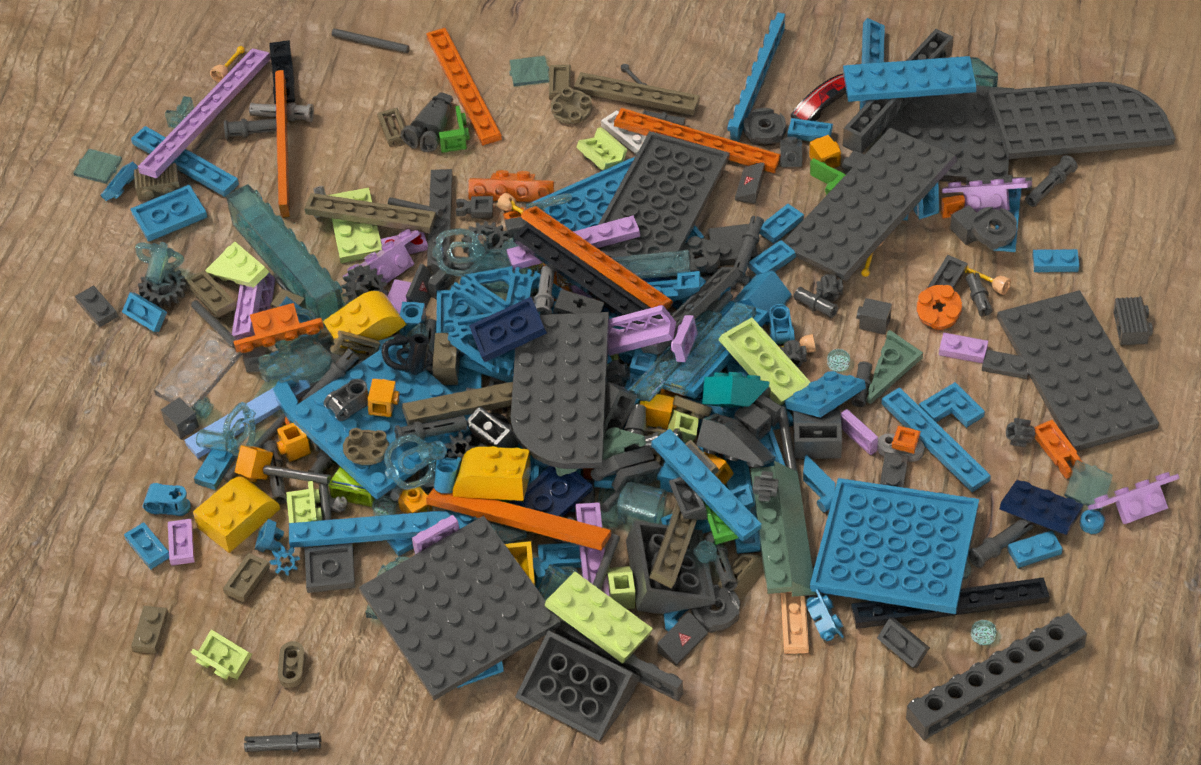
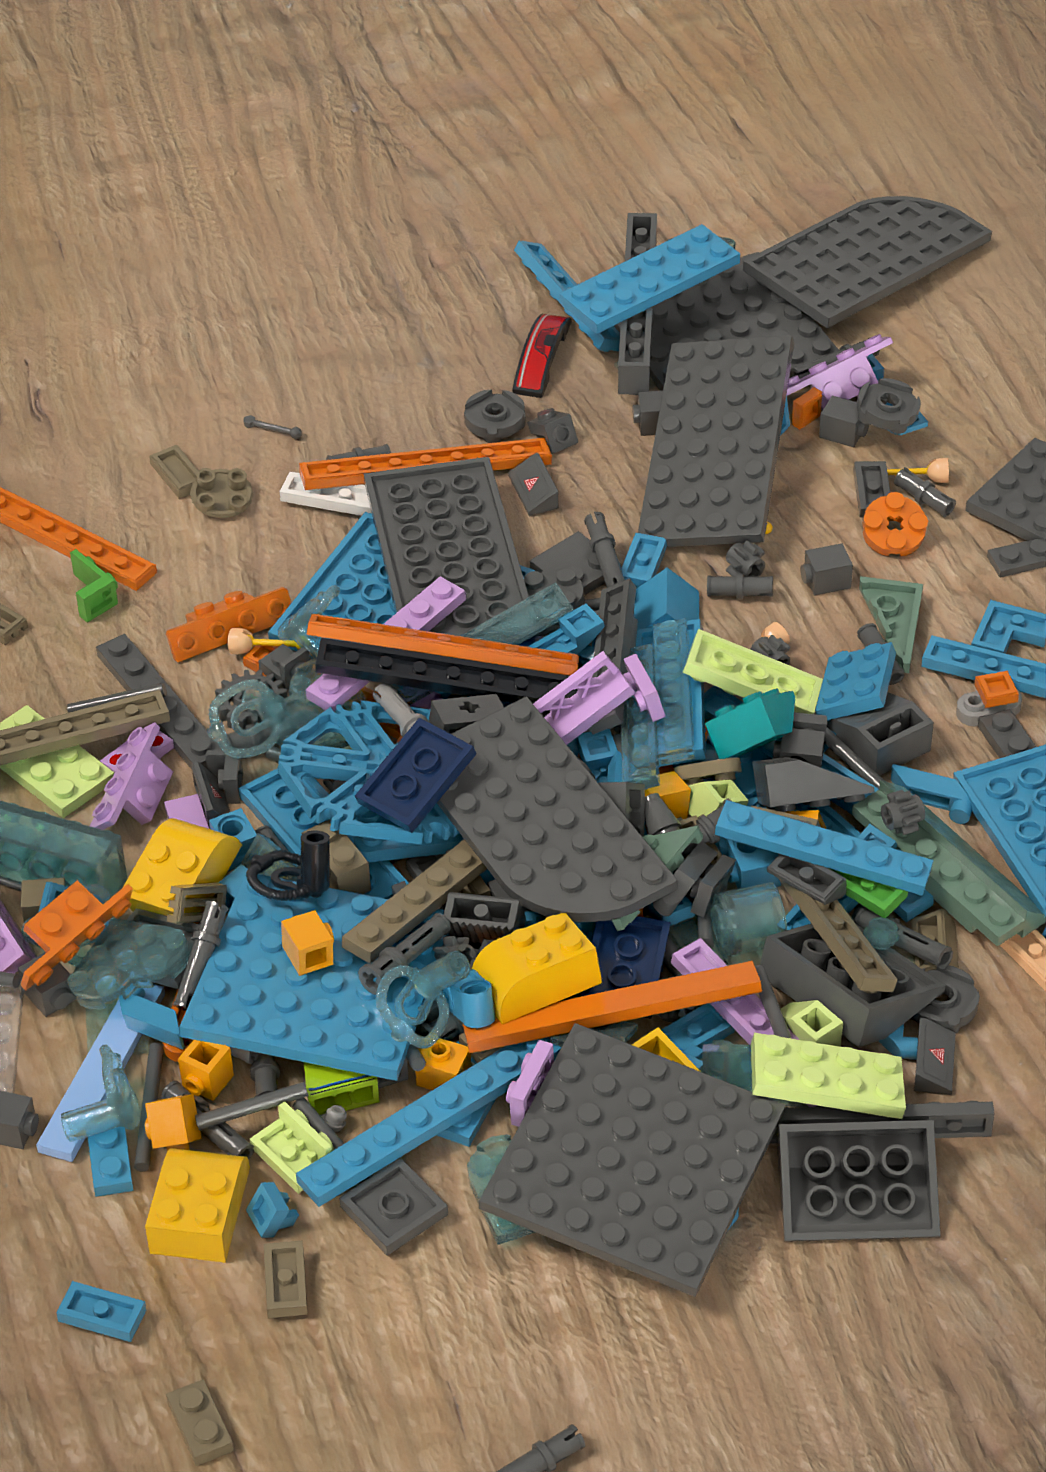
camera: 35 degrees left, 5 degrees down
(164, 498) = (77, 1237): dark azure piece -> none
(181, 542) = (148, 1280): lavender plate -> none
(203, 408) = (30, 1087): clear light blue plate -> none
(223, 655) = (342, 1397): yellowish green bracket -> none
(284, 553) = (324, 1227): dark azure gear -> none
(291, 666) = (452, 1361): dark tan plate -> none
(348, 399) = (262, 965): dark grey piece -> none
(365, 446) = (339, 1014): dark tan dish -> none
(367, 282) = (134, 821): dark grey gear -> none
(384, 506) = (397, 1094): clear light blue tile -> none
(428, 124) = (45, 582): dark grey piece -> none
(478, 207) = (202, 663): dark grey plate -> none
(529, 71) = (123, 476): clear light blue piece -> none
(603, 149) = (313, 524): yellowish green bracket -> none
(637, 93) = (297, 442): dark tan plate -> none
(755, 81) = (437, 365): dark azure plate -> none
(780, 324) = (722, 622): dark azure piece -> none
(781, 223) = (618, 510): dark azure plate -> none
(808, 130) = (556, 395): dark azure plate -> none
(825, 151) = (599, 413): light orange brick -> none
(825, 174) = (627, 437): bright green bracket -> none
(838, 360) = (824, 641): clear light blue tile -> none
(859, 432) = (942, 710): lavender tile -> none
(963, 347) = (958, 560): lavender plate -> none
(1055, 260) = (975, 419): dark azure plate -> none
(1057, 175) = (894, 325): dark grey pin -> none

